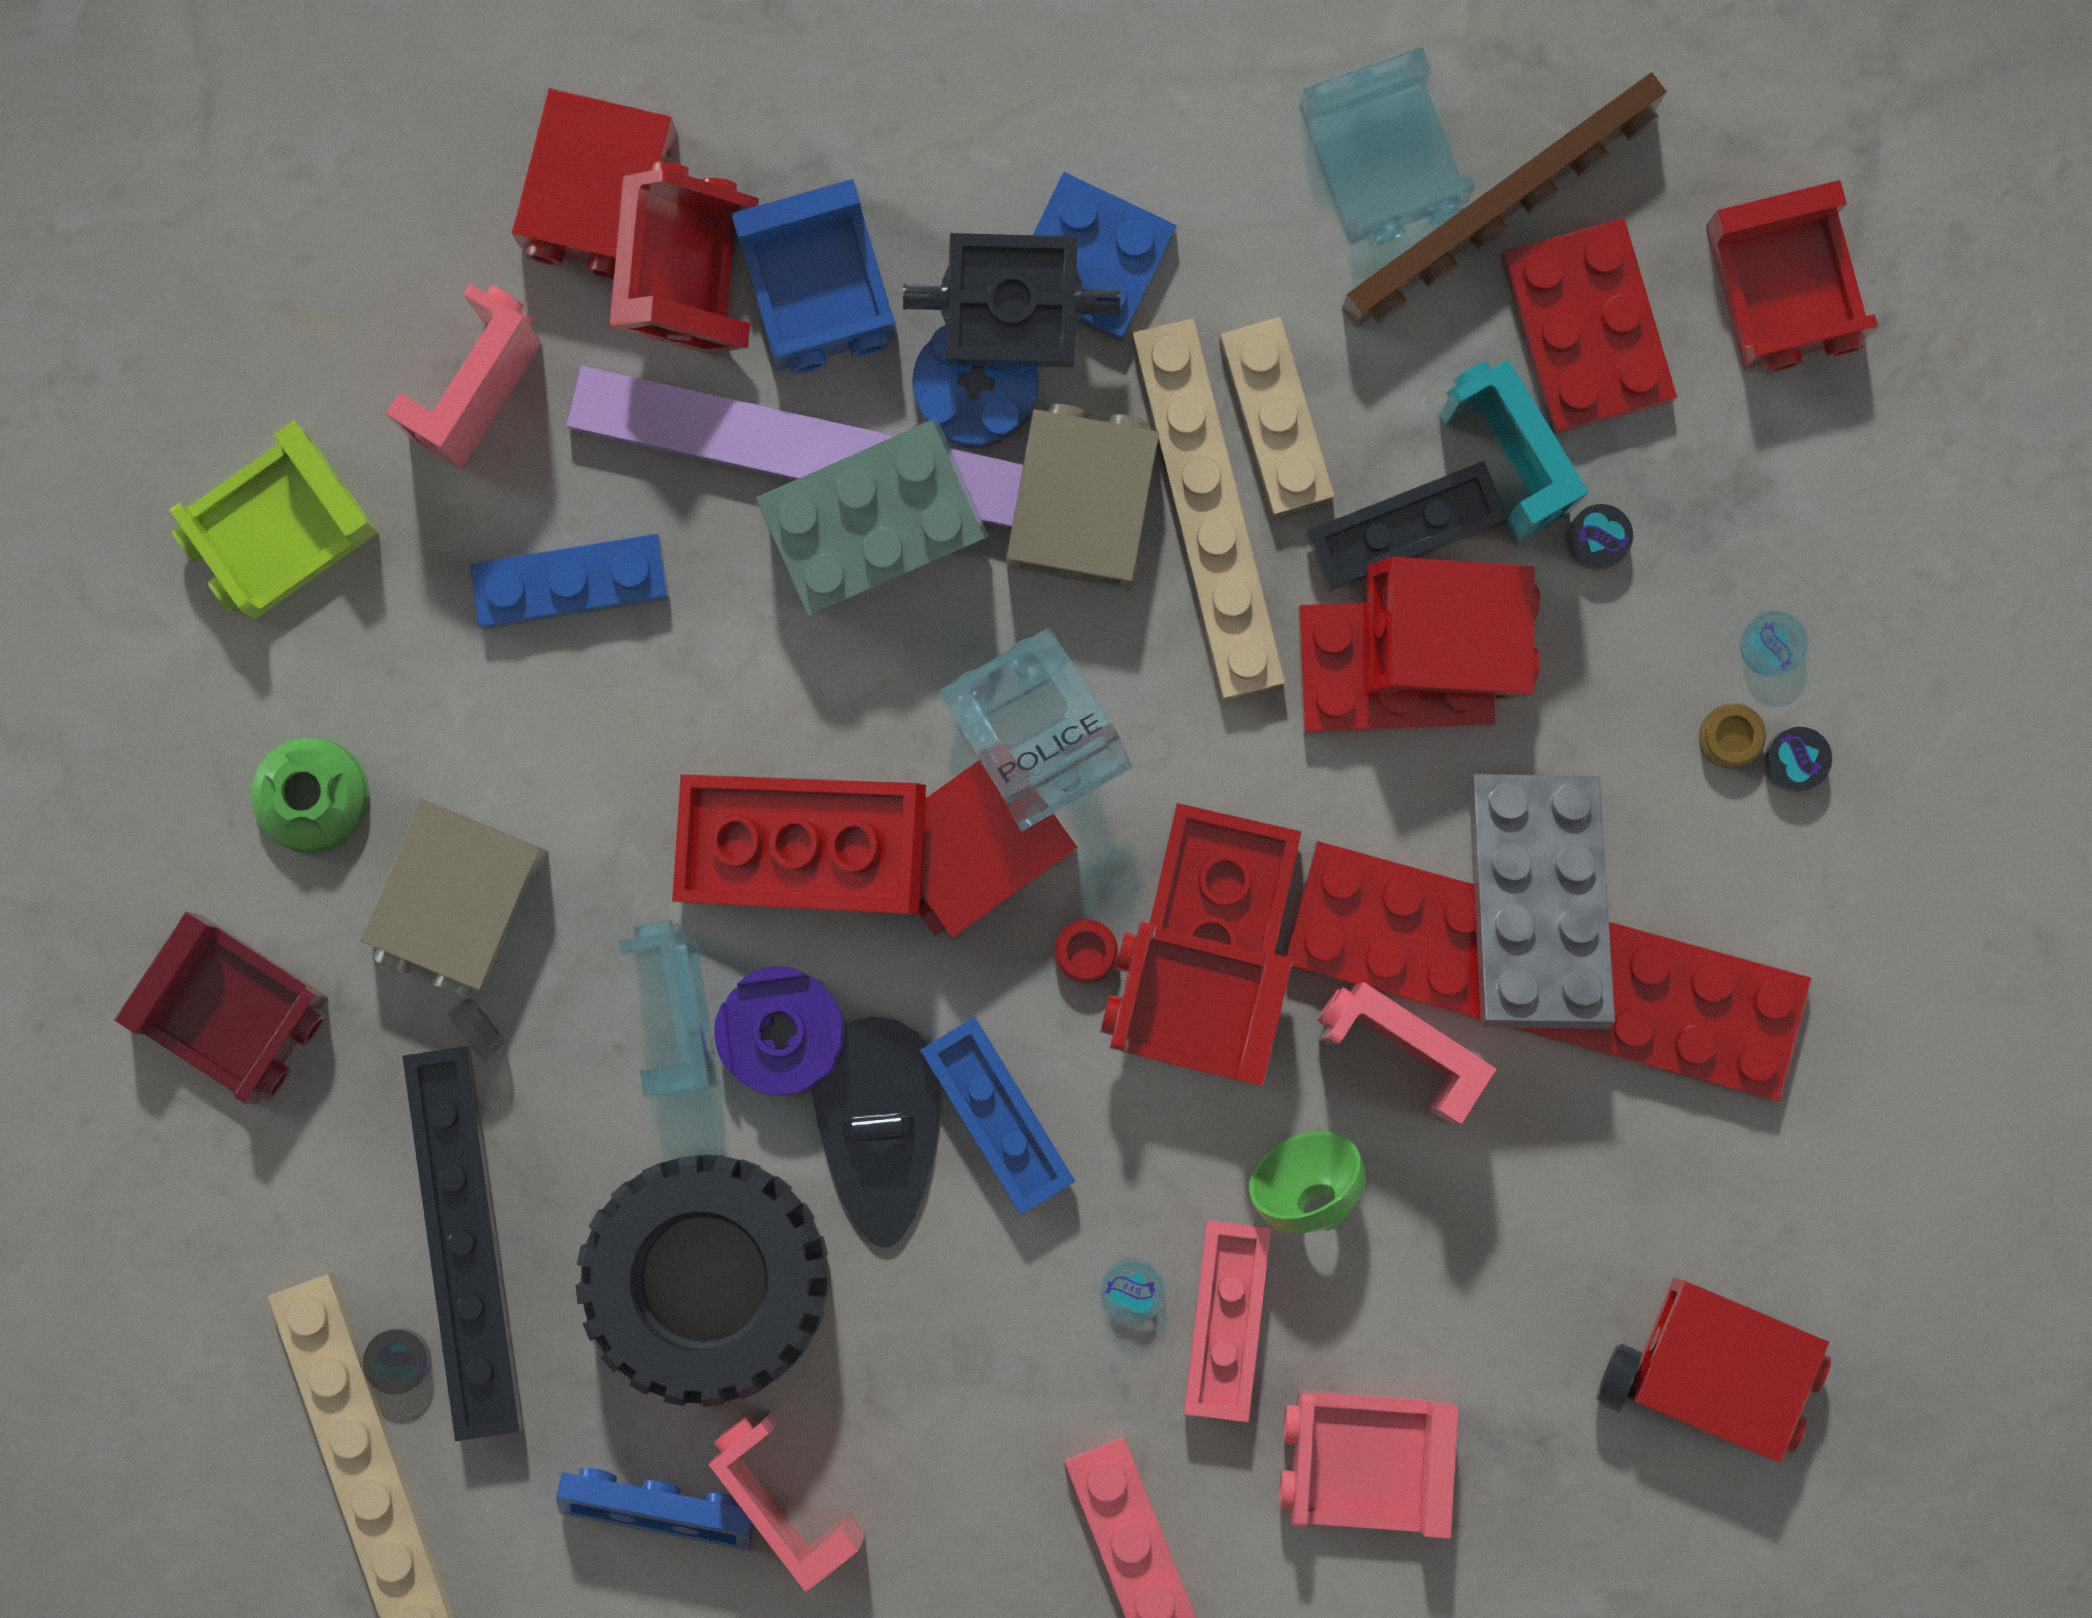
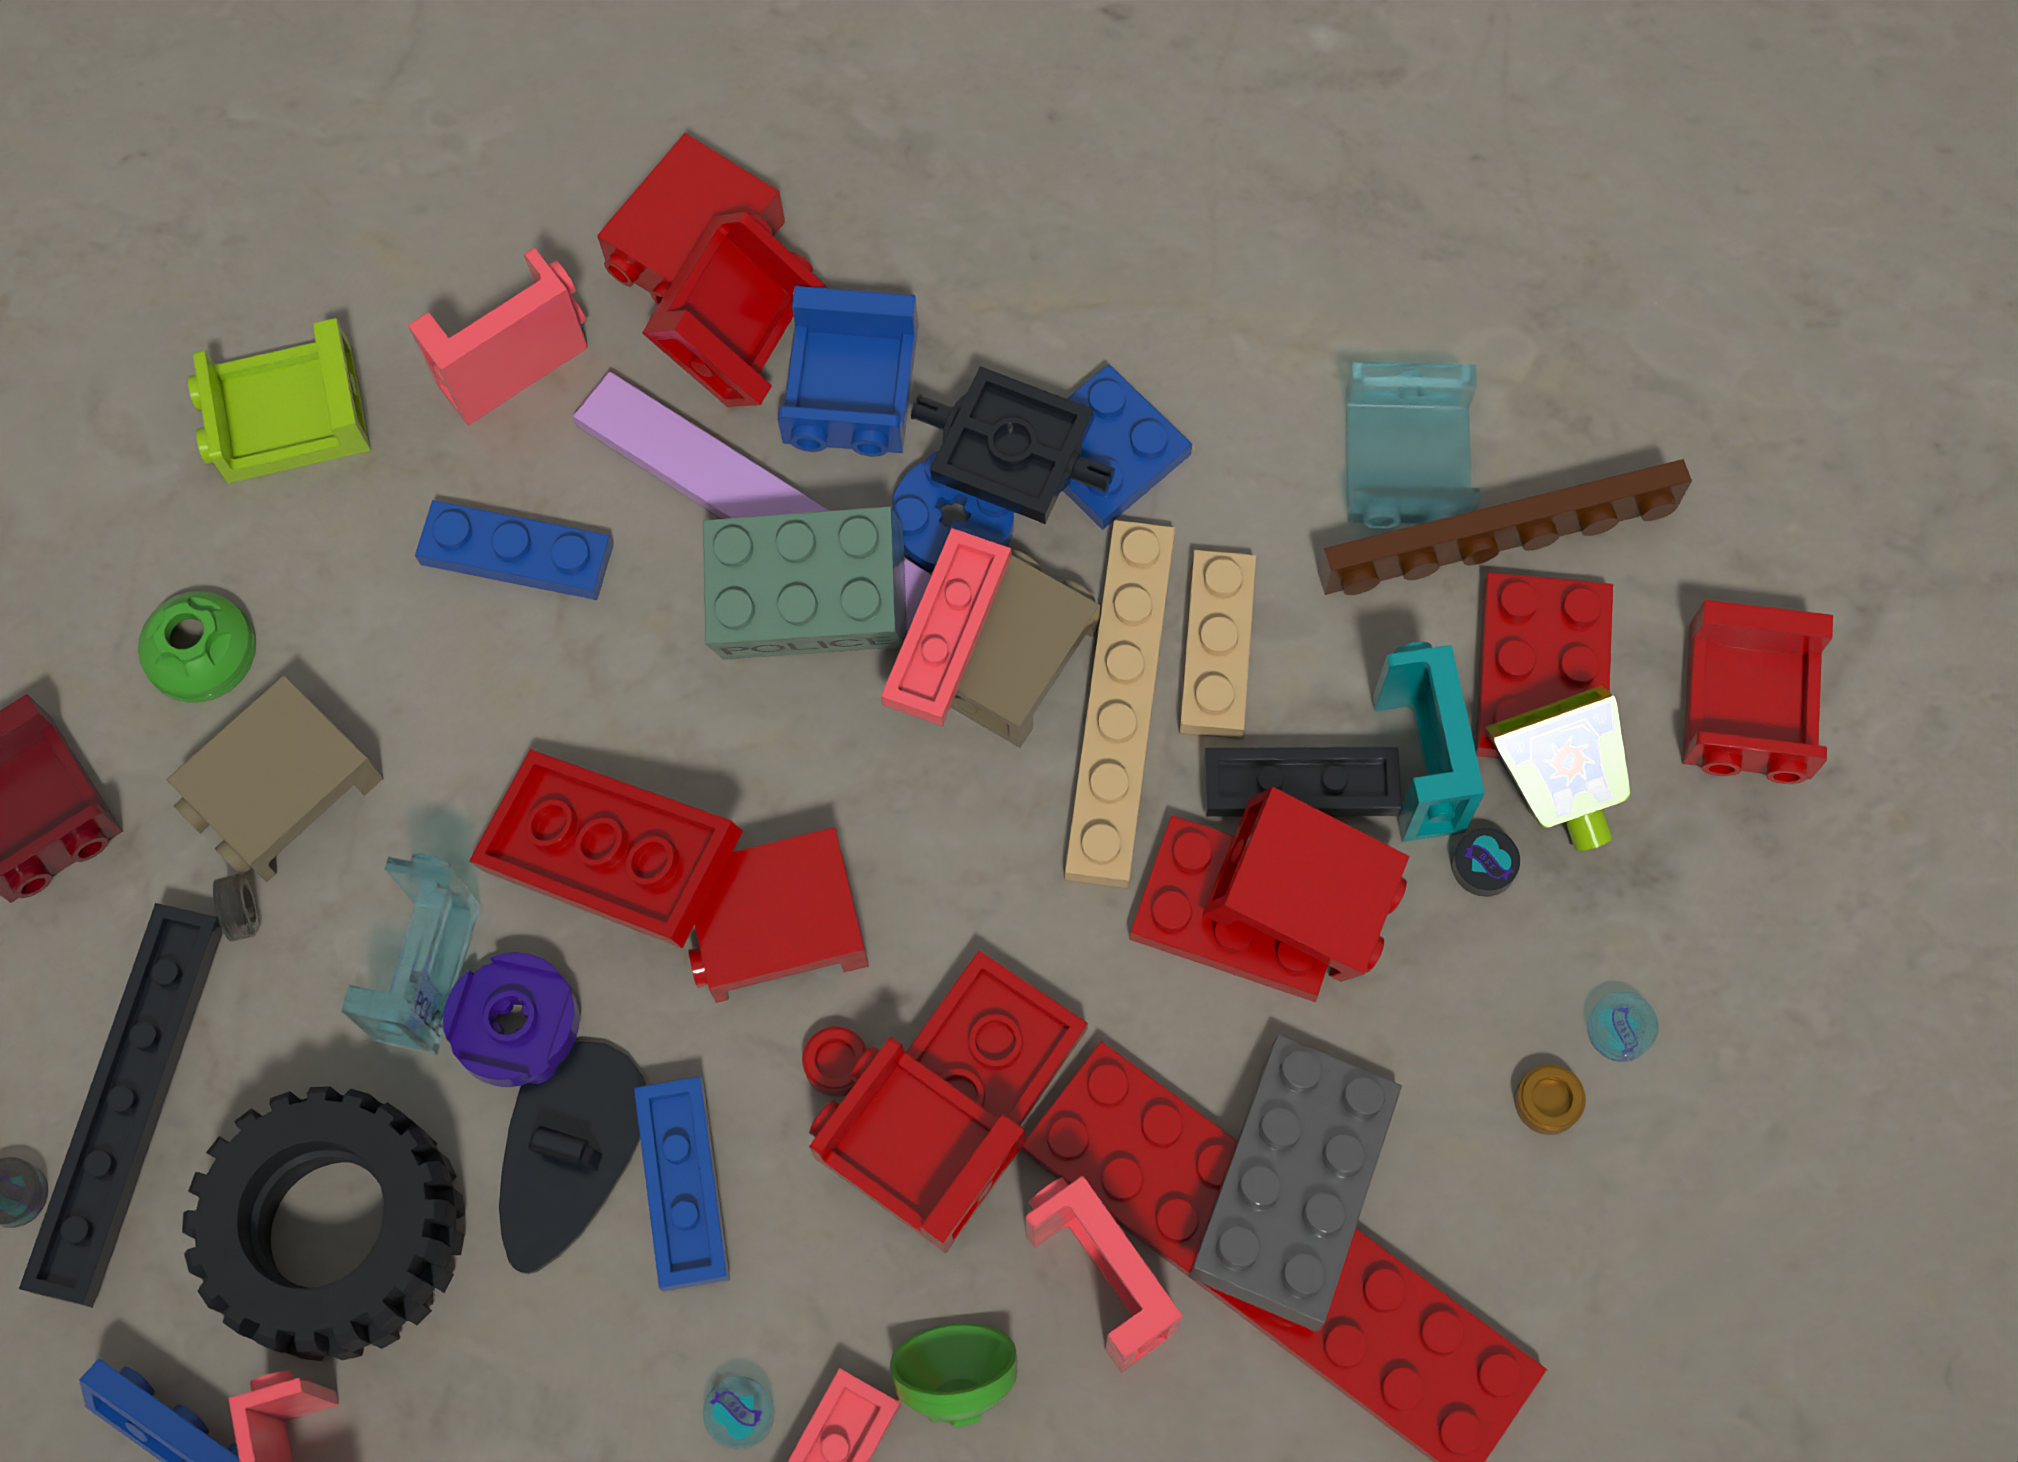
camera: 25 degrees right, 15 degrees down
(1029, 513) = (946, 627): none -> coral plate
(1055, 761) = (874, 856): clear light blue window -> none
(1644, 418) = (1568, 763): none -> torso
(1798, 759) = (1608, 1146): black tile -> none

